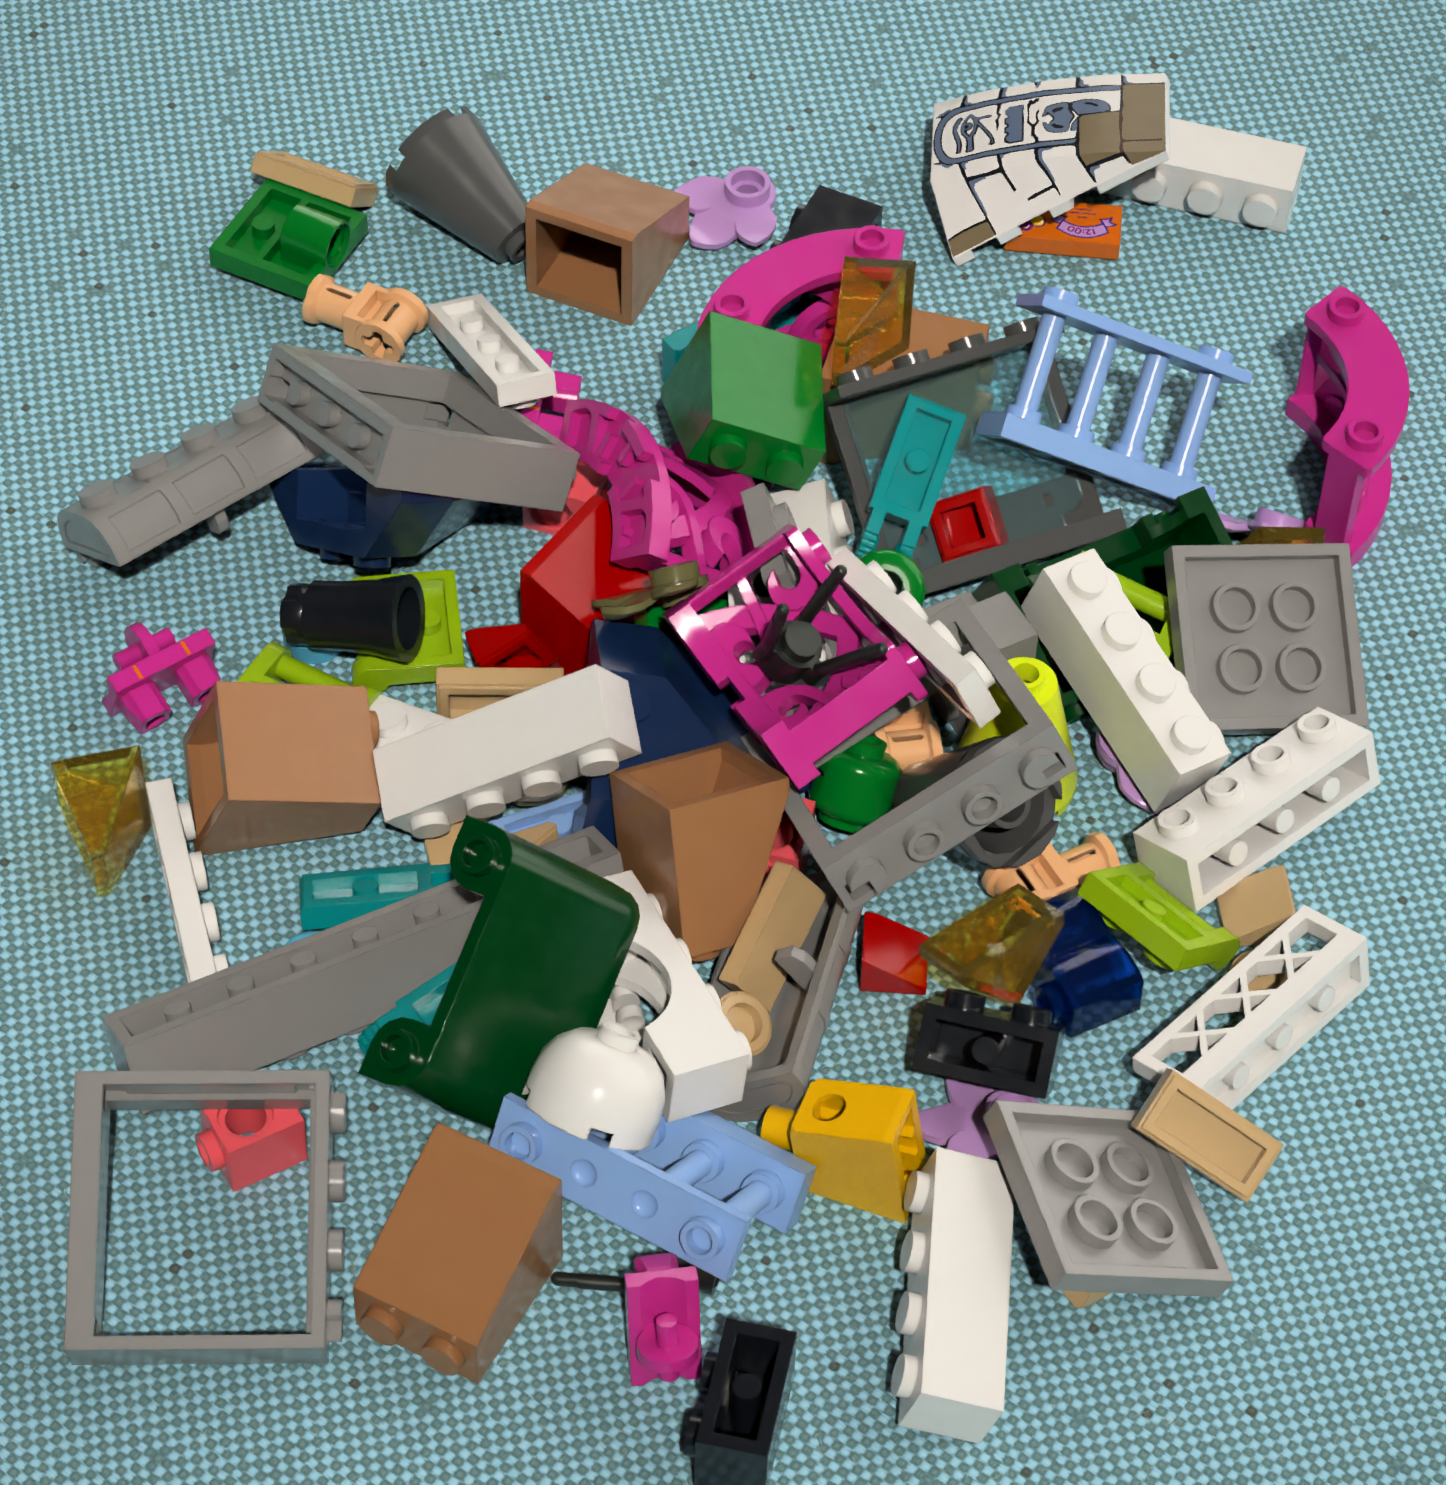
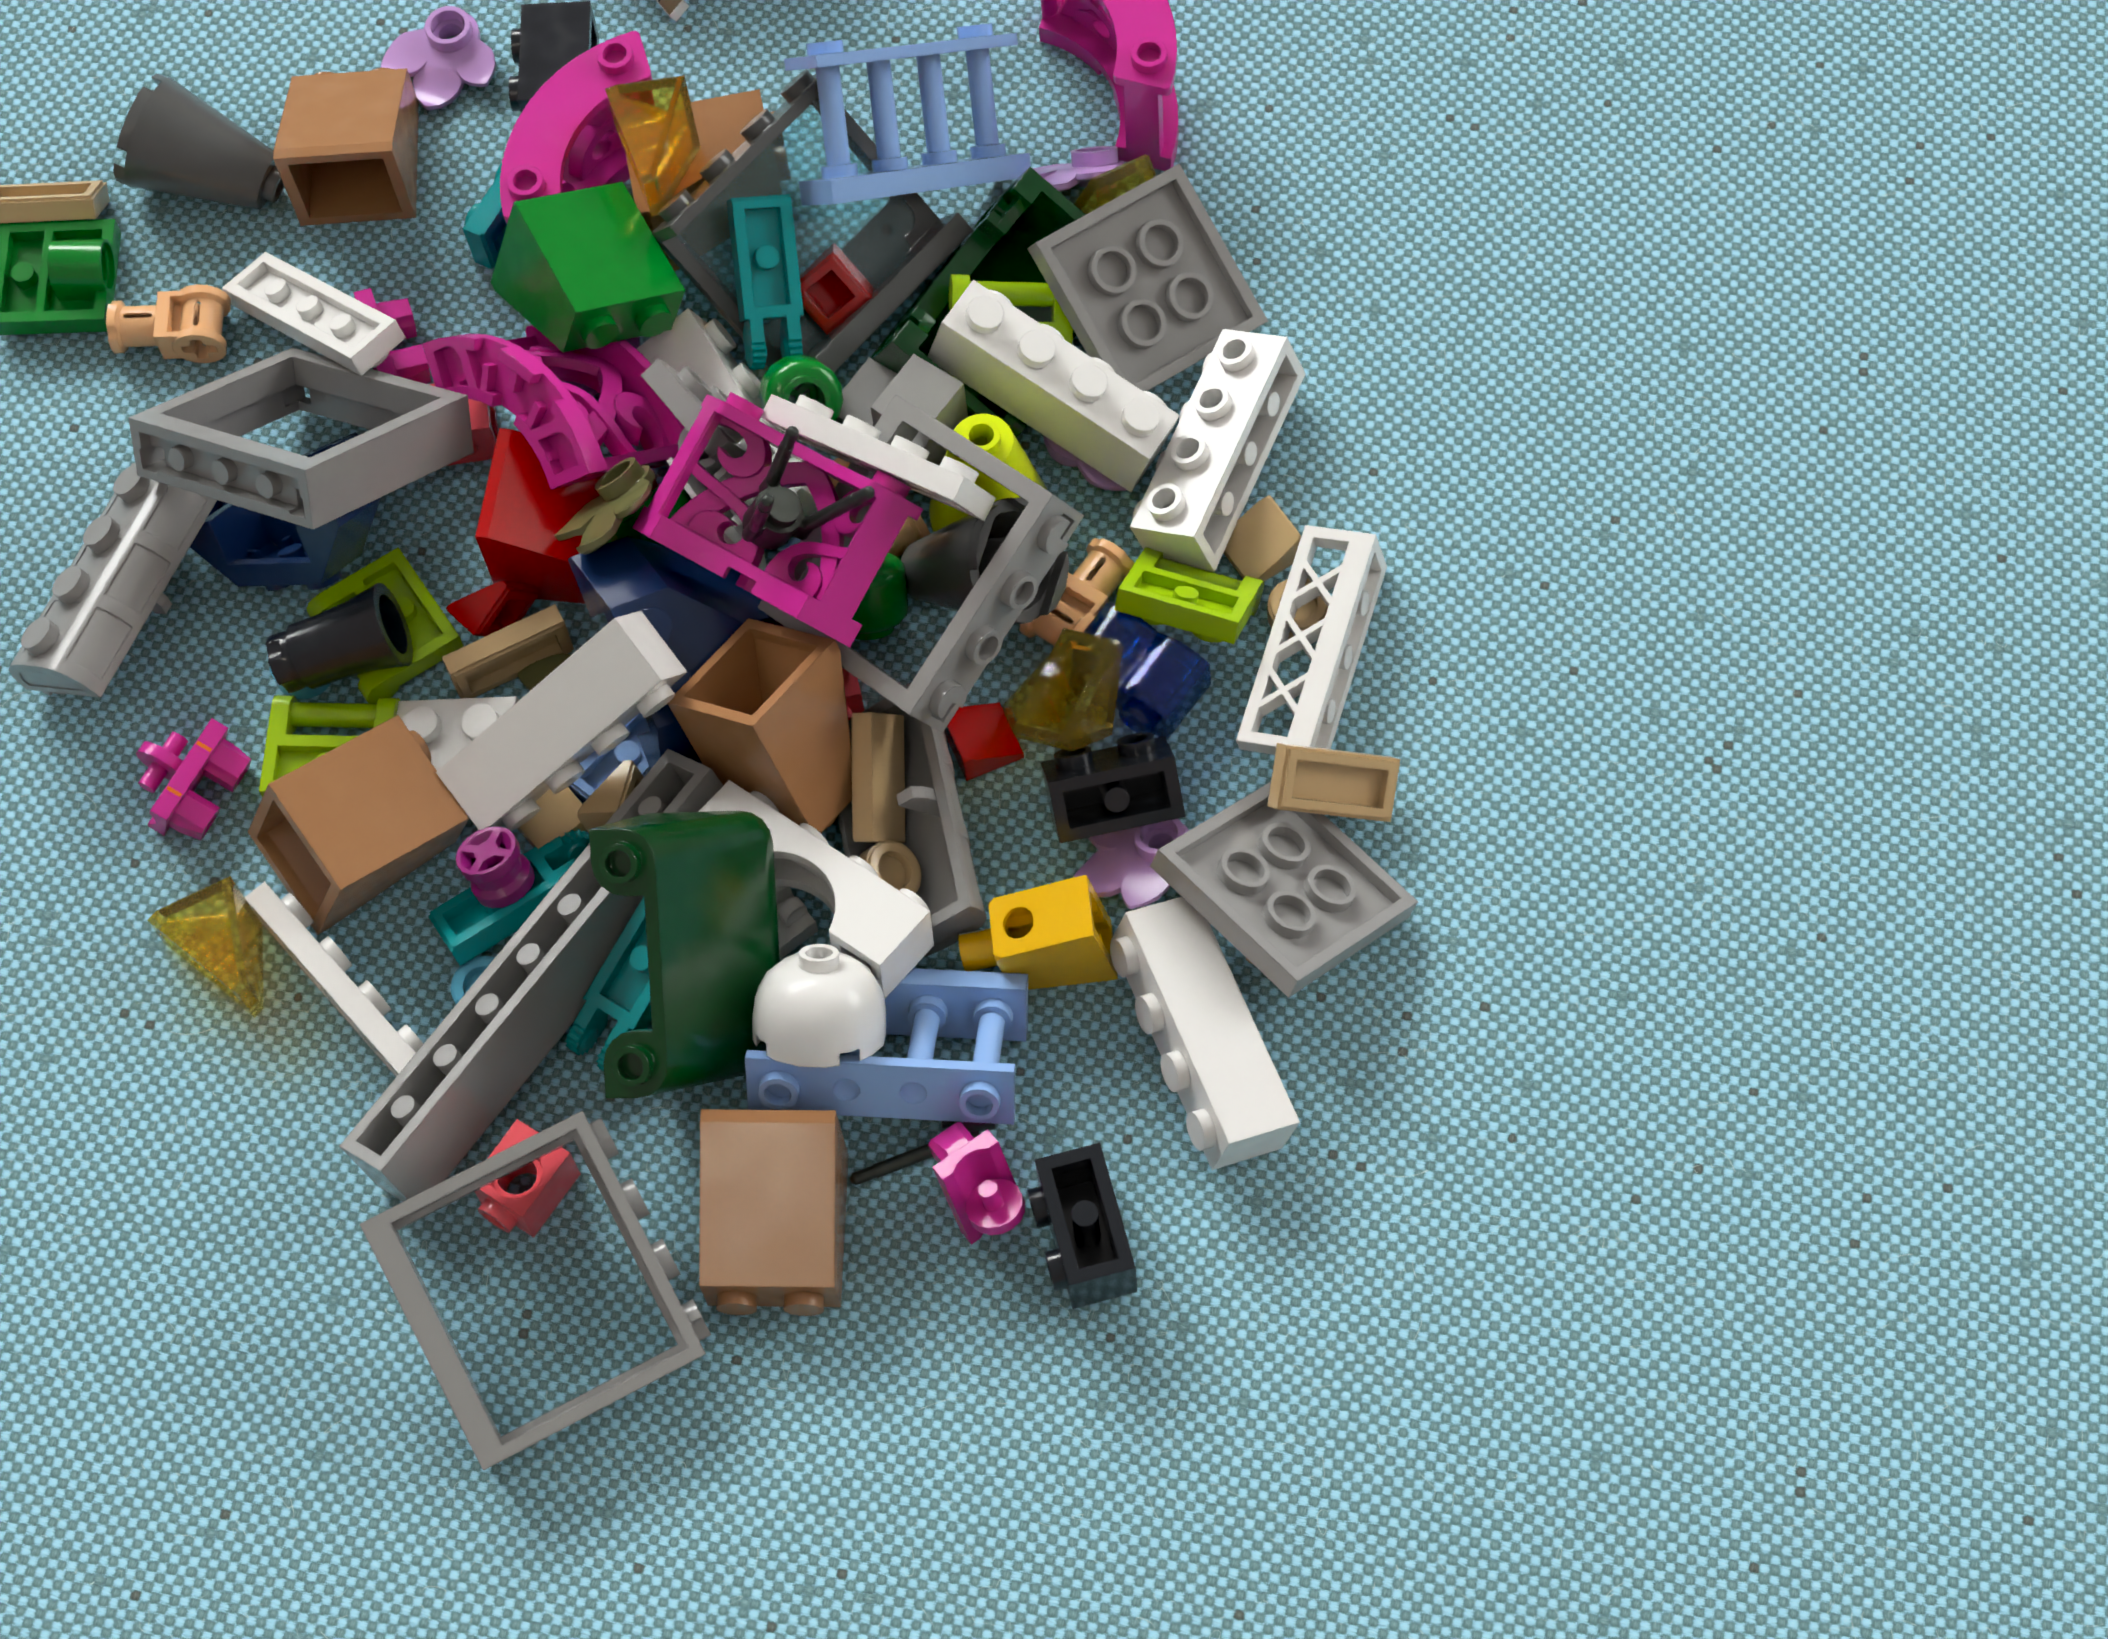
camera: 20 degrees left, 15 degrees up
(380, 856) = (495, 867): none -> magenta wheel

